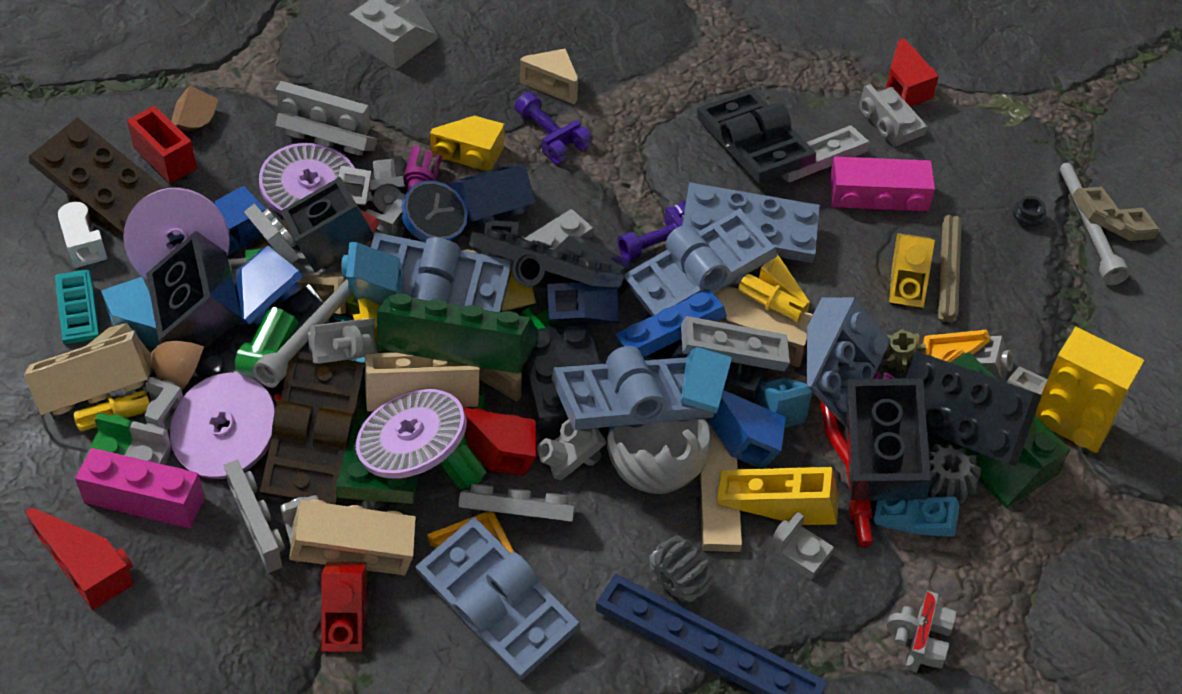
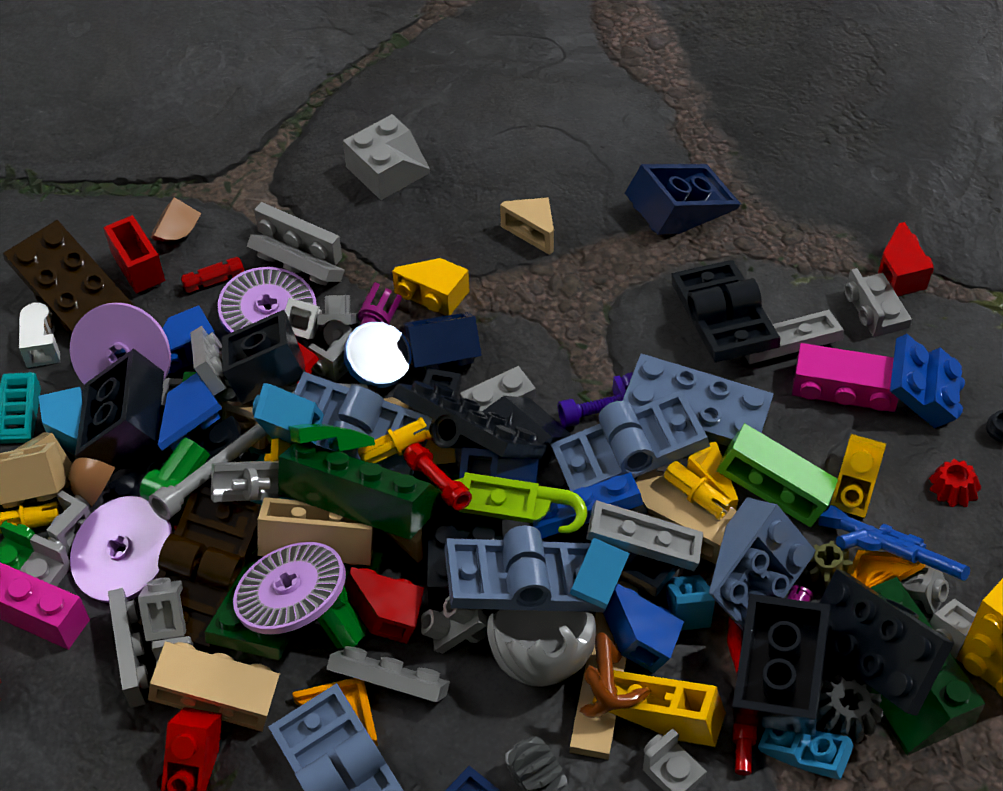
camera: 15 degrees right, 0 degrees up
(244, 157) = (212, 274): none -> red axle
(285, 473) = (162, 609): none -> light grey bracket
(427, 286) = (338, 437): none -> green slope
(482, 285) = (394, 442): none -> yellow axle
(550, 324) = (453, 492): none -> red bar
(553, 145) = (502, 254): dark purple bar -> none
(604, 326) = (519, 500): none -> lime plate
(686, 36) = (679, 196): none -> dark blue slope
(731, 485) = (602, 682): none -> dark orange piece
(840, 274) = (777, 475): none -> bright green brick
(950, 269) = (904, 475): dark tan axle -> none
(954, 321) = (887, 539): none -> blue piece
(955, 178) = (927, 381): none -> blue plate
(997, 266) = (955, 483): none -> red piece

